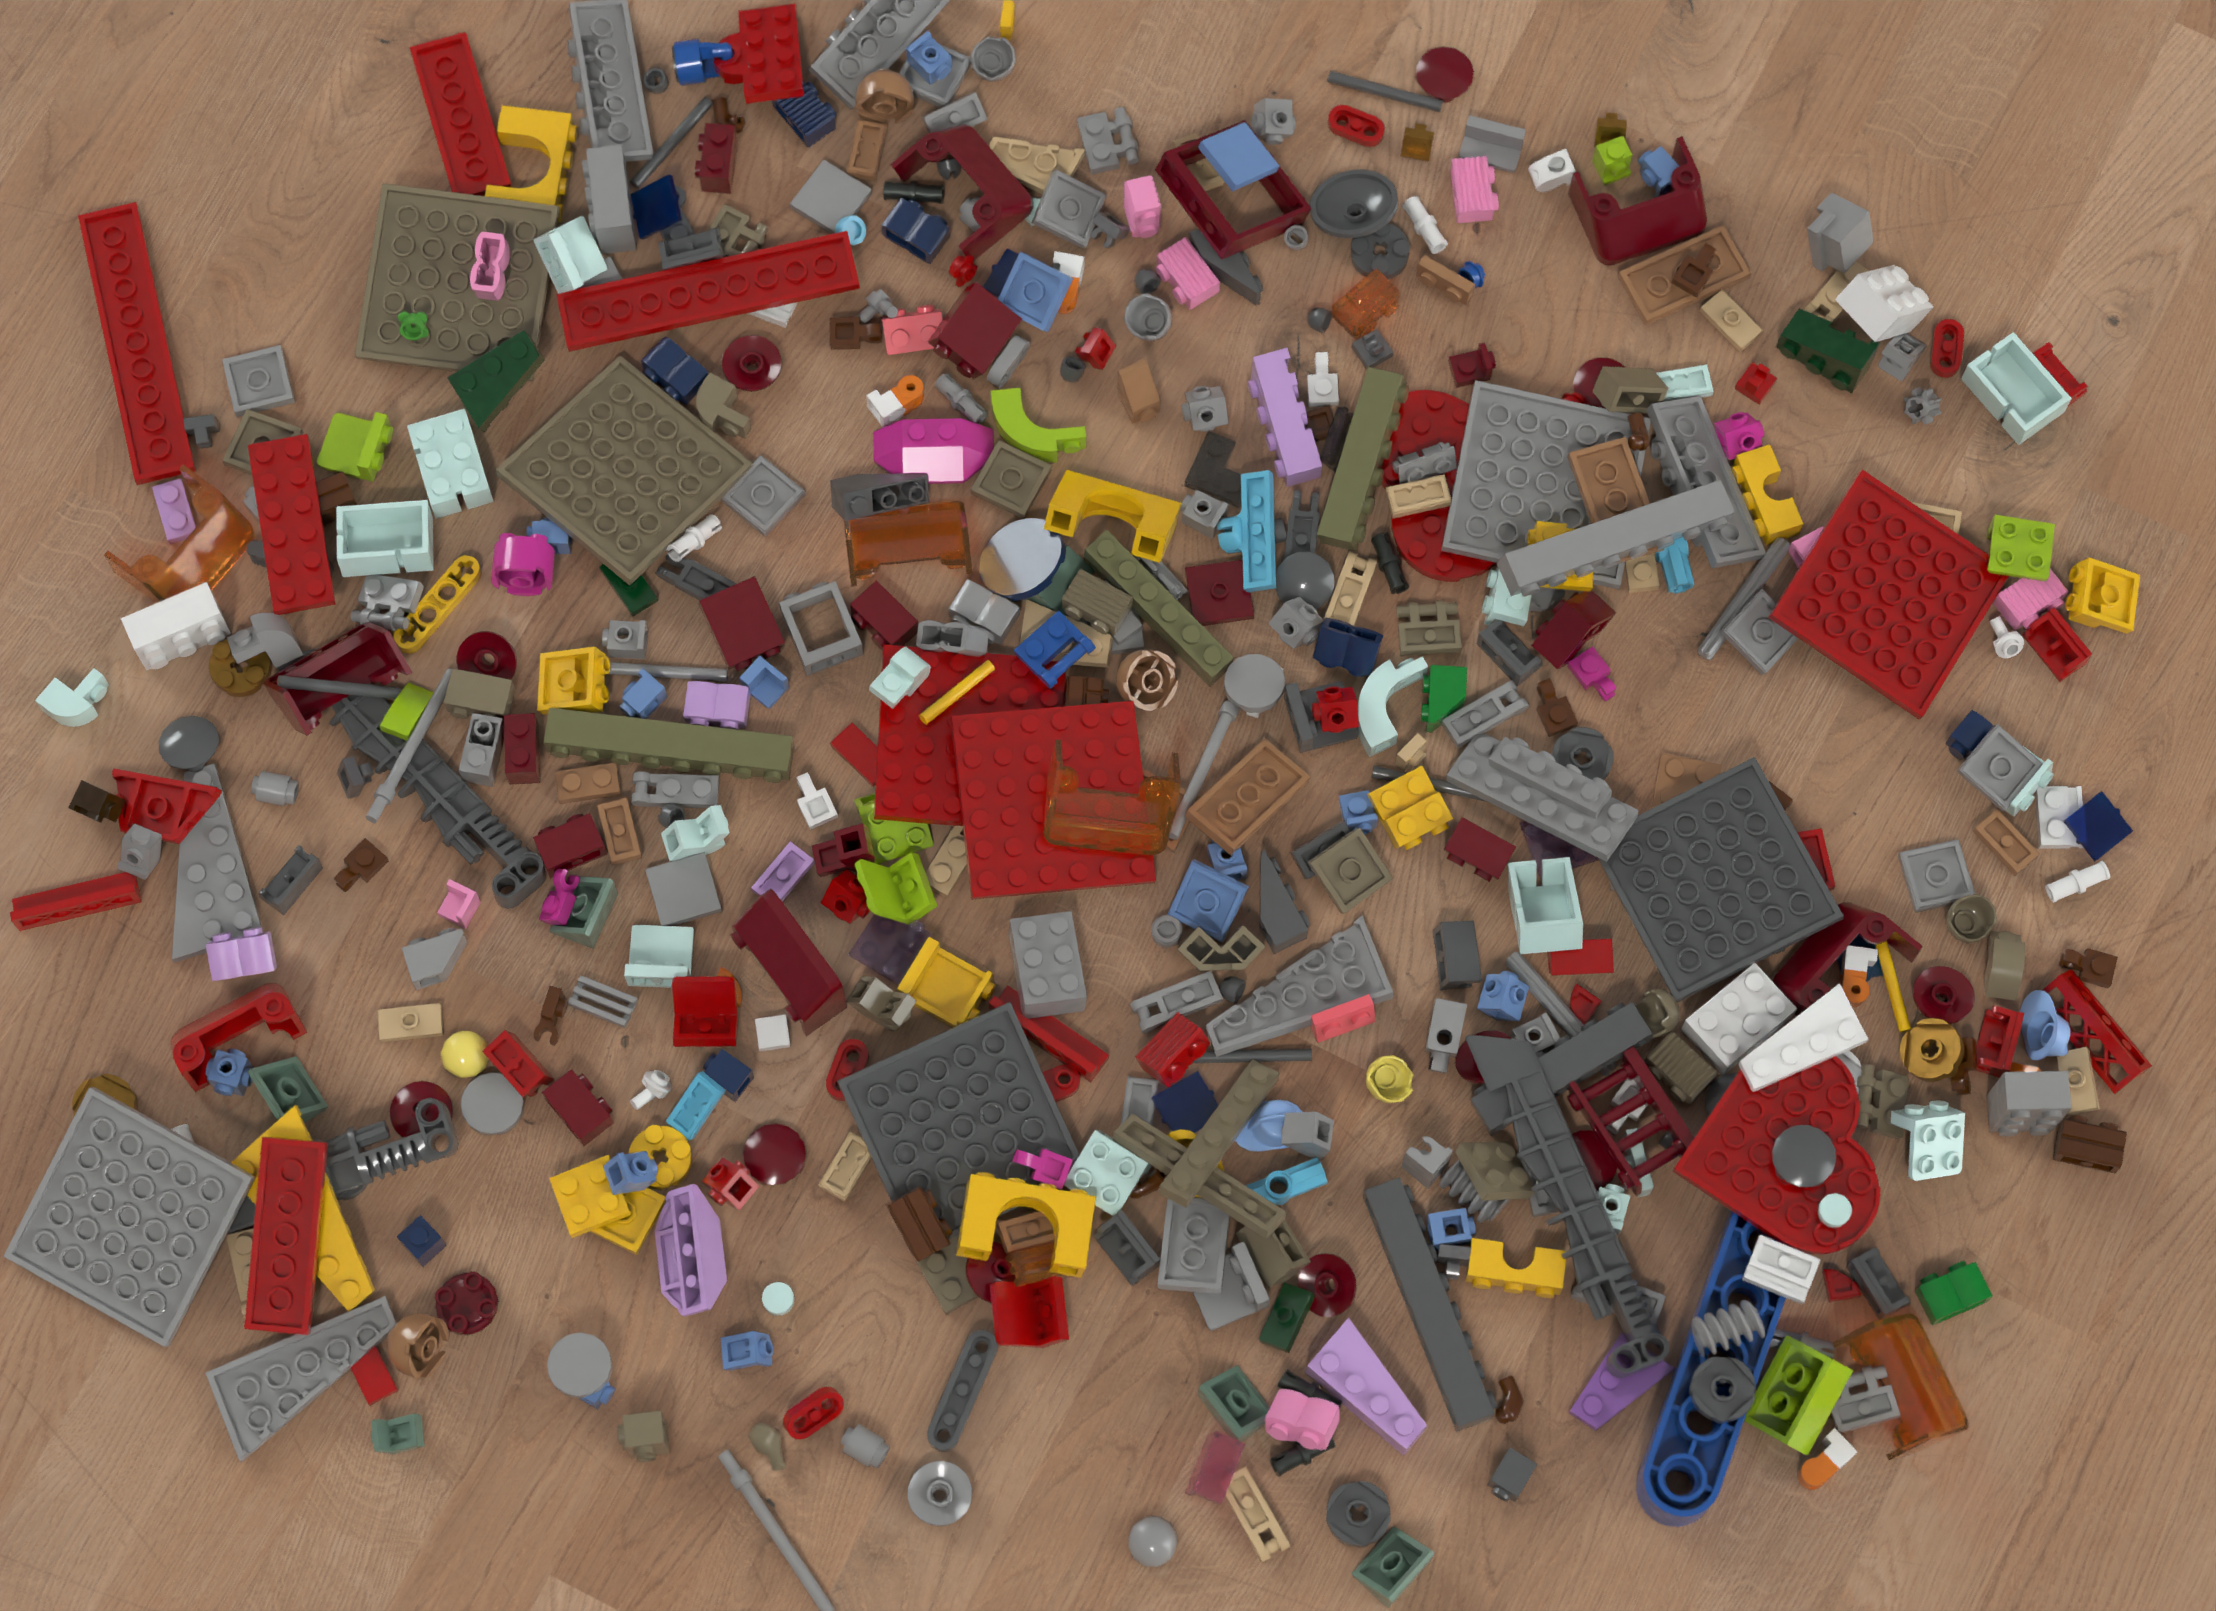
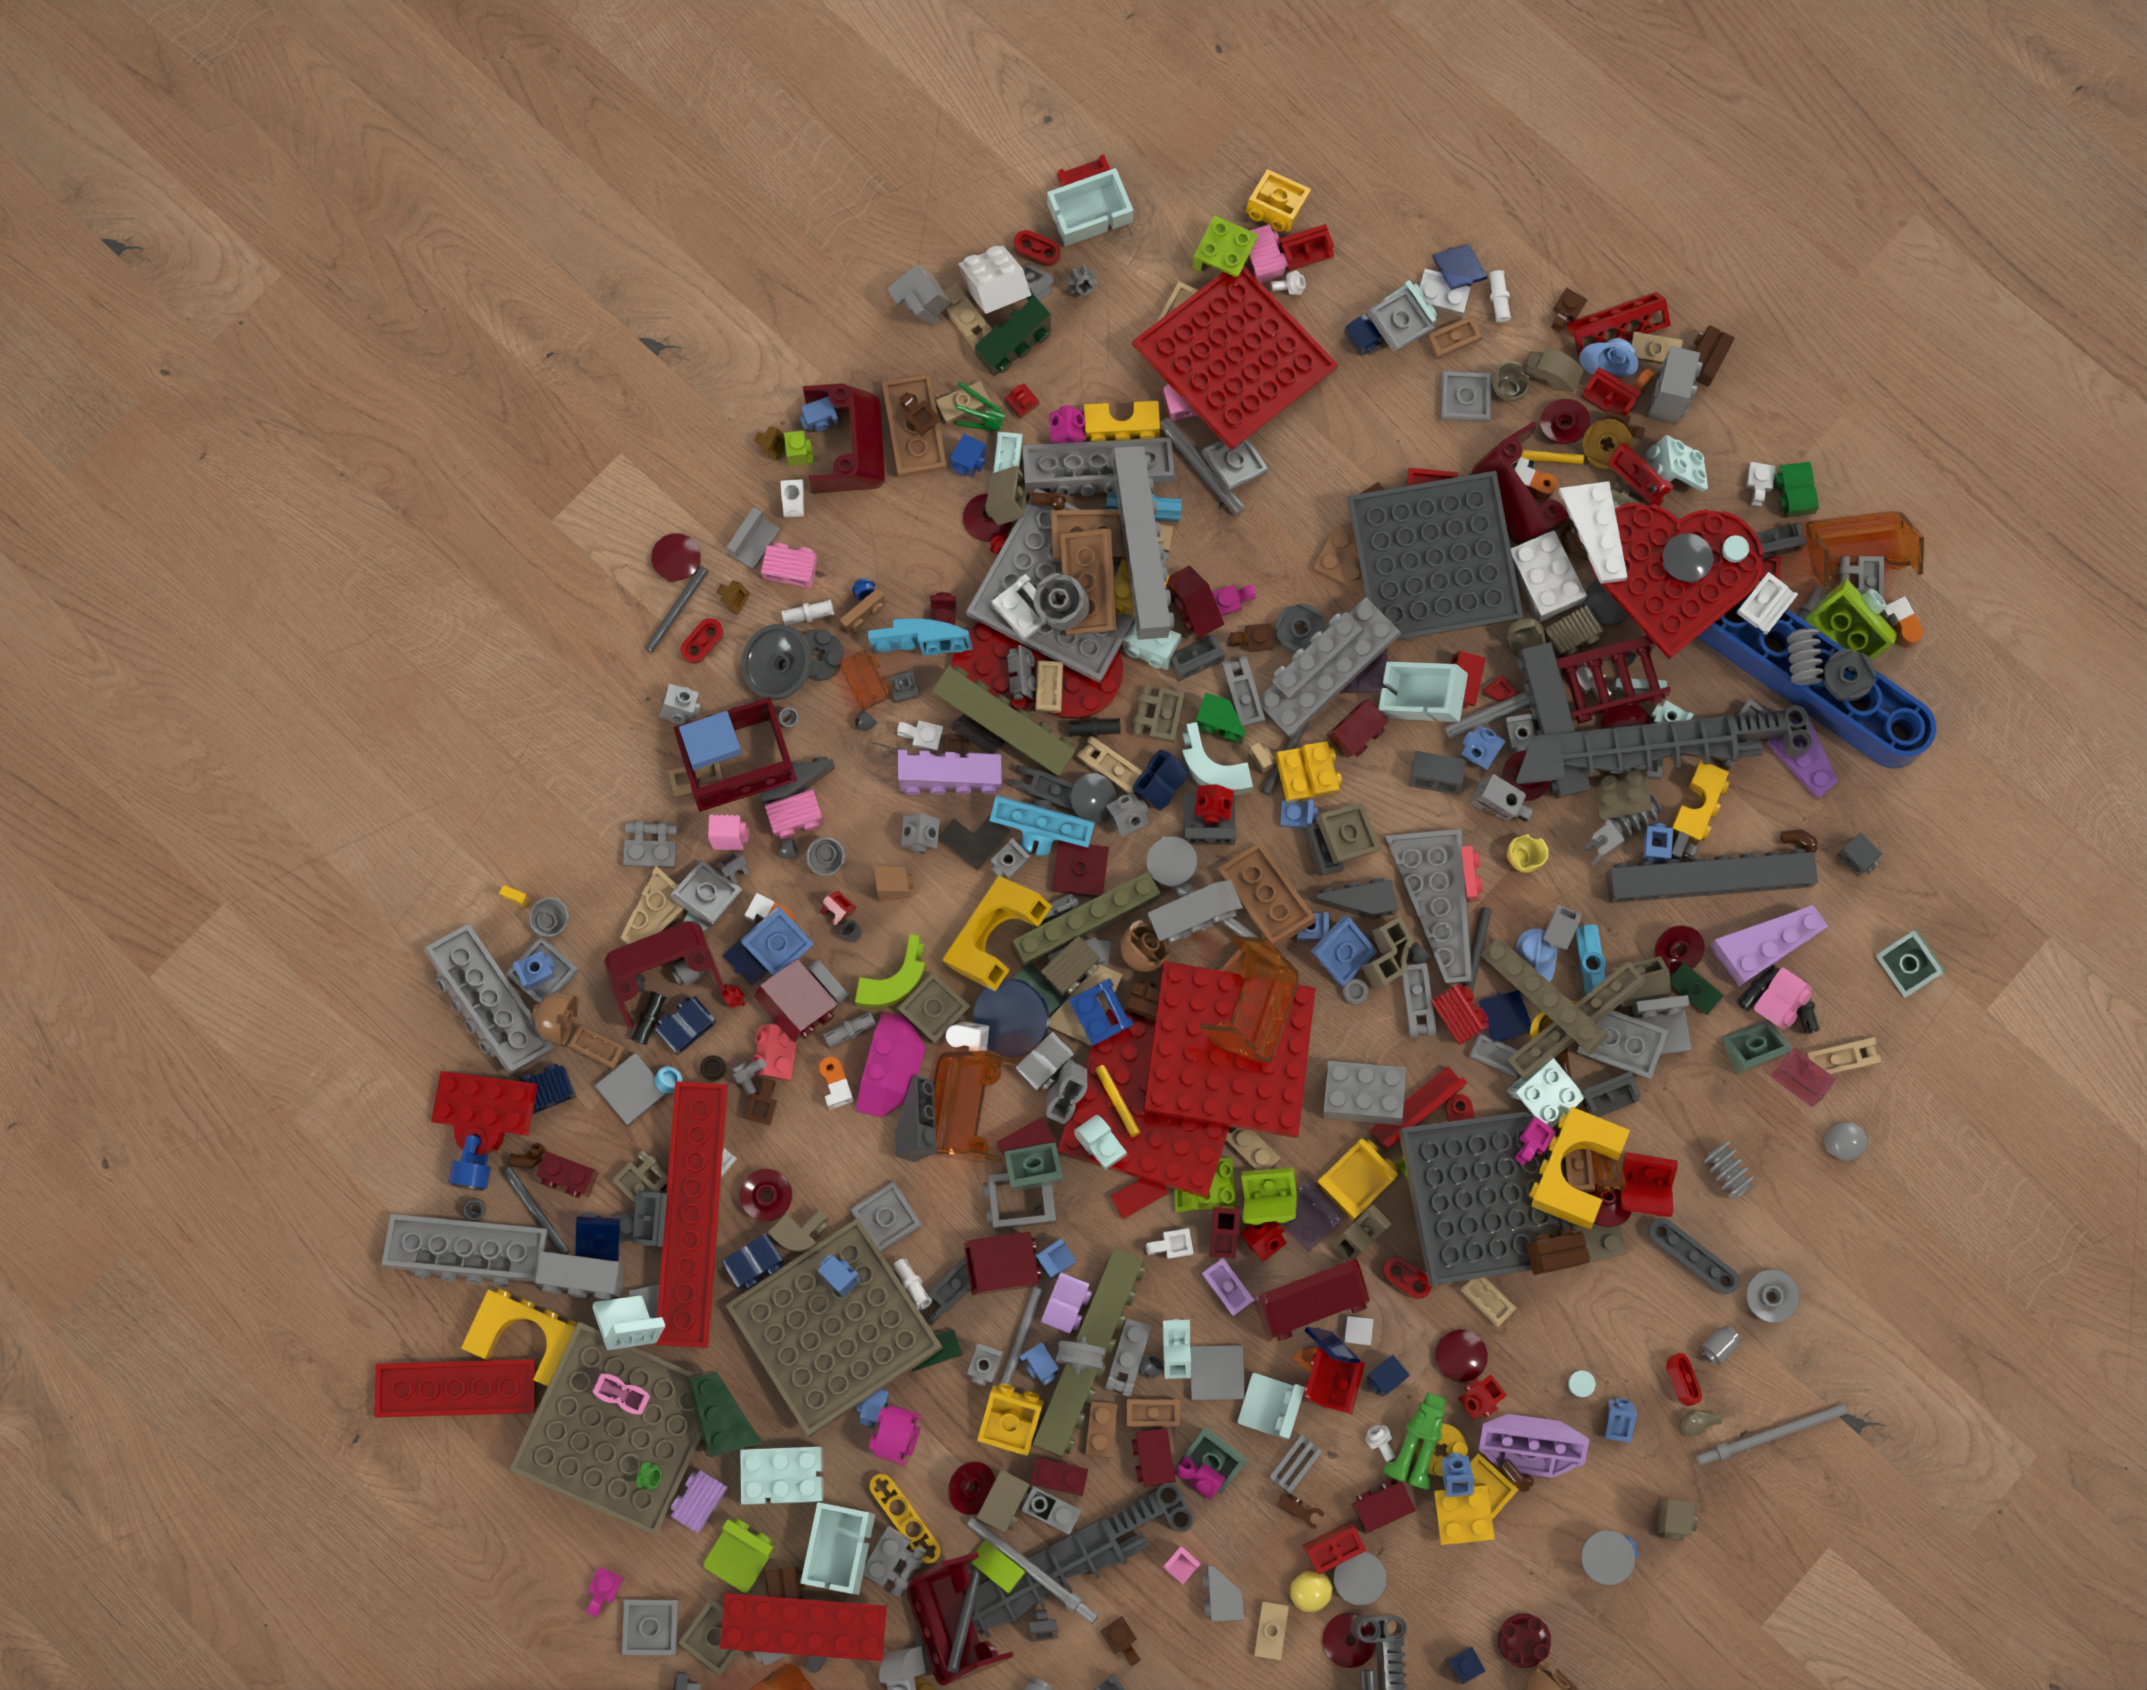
camera: 75 degrees left, 5 degrees up
(288, 323) = (603, 1587): none -> dark pink plate
(402, 388) = (699, 1501): none -> lavender brick
(648, 1245) = (1522, 1482): none -> reddish brown arm
(656, 723) = (1080, 1355): none -> light grey wheel
(678, 1128) = (1425, 1425): none -> bright green piece
(679, 454) = (838, 1274): none -> medium blue brick
(695, 1105) = (1403, 1402): medium azure plate -> none
(744, 999) = (1332, 1345): none -> clear blue piece
(855, 622) = (1033, 1167): none -> sand green slope
(877, 273) = (713, 1068): none -> dark brown plate
(960, 112) = (591, 965): light grey plate -> none
(990, 523) = (968, 1034): none -> white leg
(1074, 1406) = (1729, 1171): none -> light grey piece
(1201, 717) = (1195, 911): none -> light grey brick
(1376, 1510) = (1859, 993): dark grey plate -> none
(1436, 350) = (929, 635): none -> medium azure slope
(1491, 435) = (1017, 611): none -> white plate
(1512, 465) = (1047, 601): none -> light grey brick
(1549, 494) = (1090, 561): none -> medium nougat plate
(1666, 341) = (968, 456): none -> blue brick
(1719, 353) = (991, 418): none -> green plant
(1836, 1413) = (1874, 601): none -> light aqua tile
(1899, 1090) = (1639, 474): none -> red plate
(1950, 1247) = (1760, 479): none -> white plate

